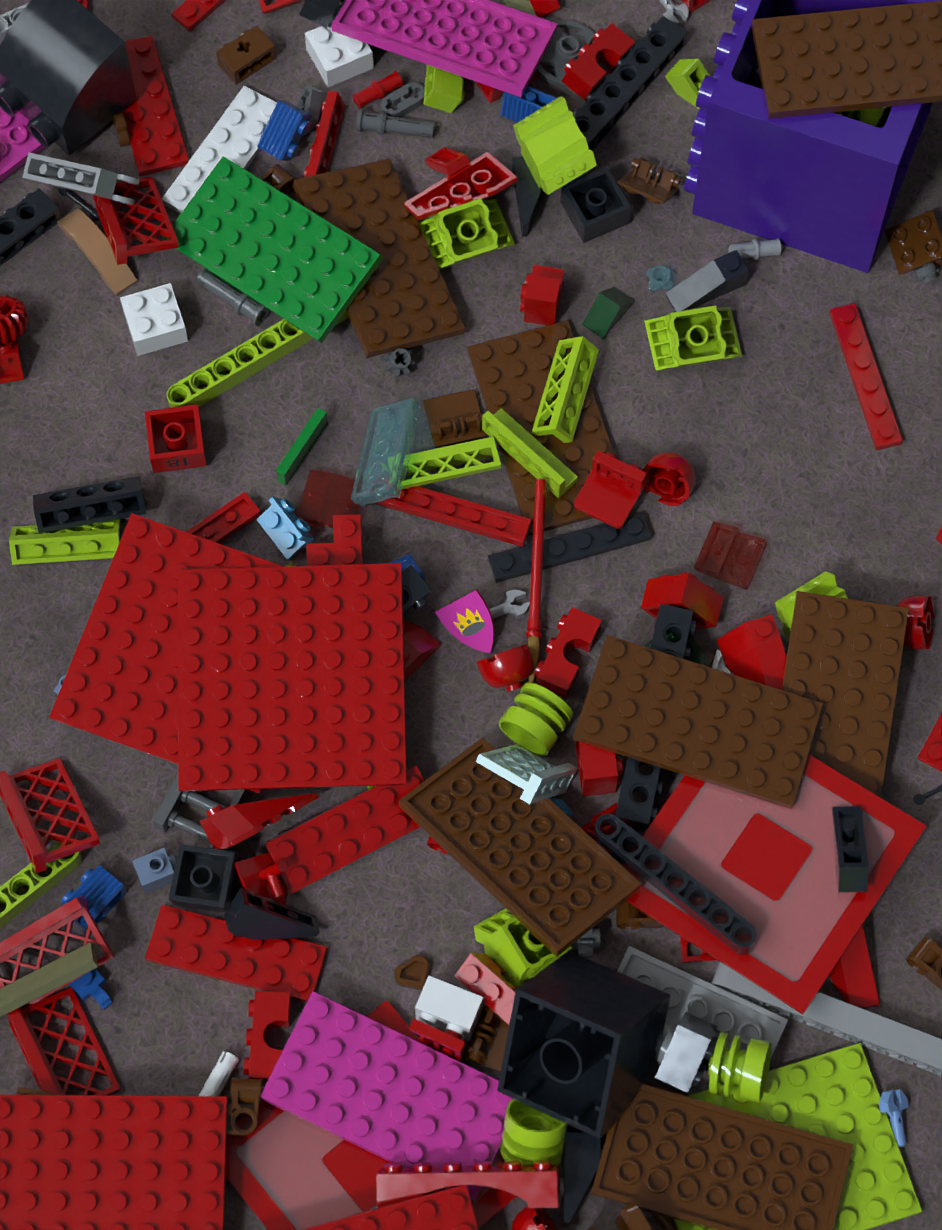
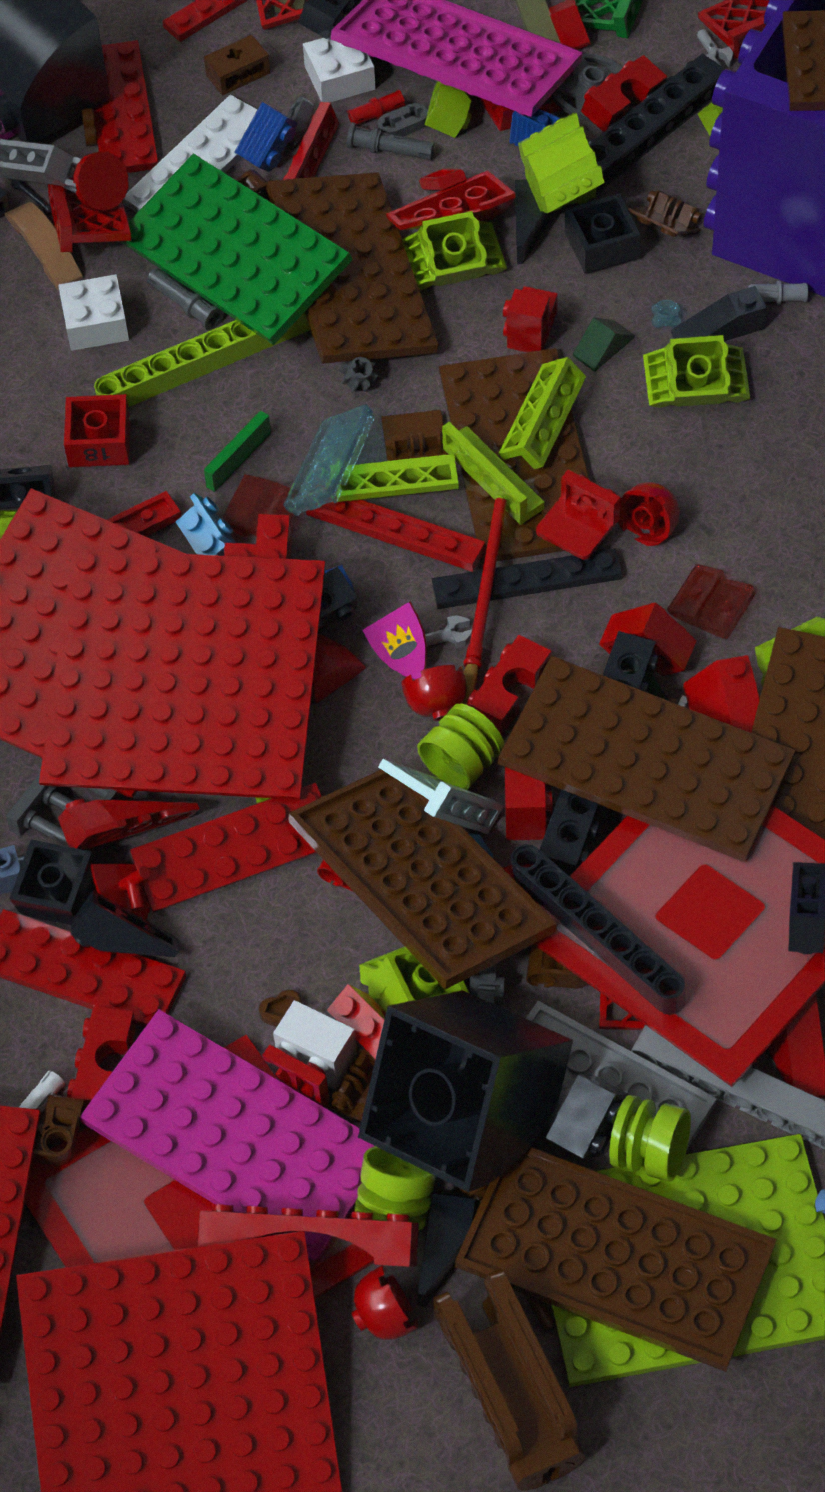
camera: 10 degrees right, 10 degrees down
(144, 193) = (101, 181): none -> red tile

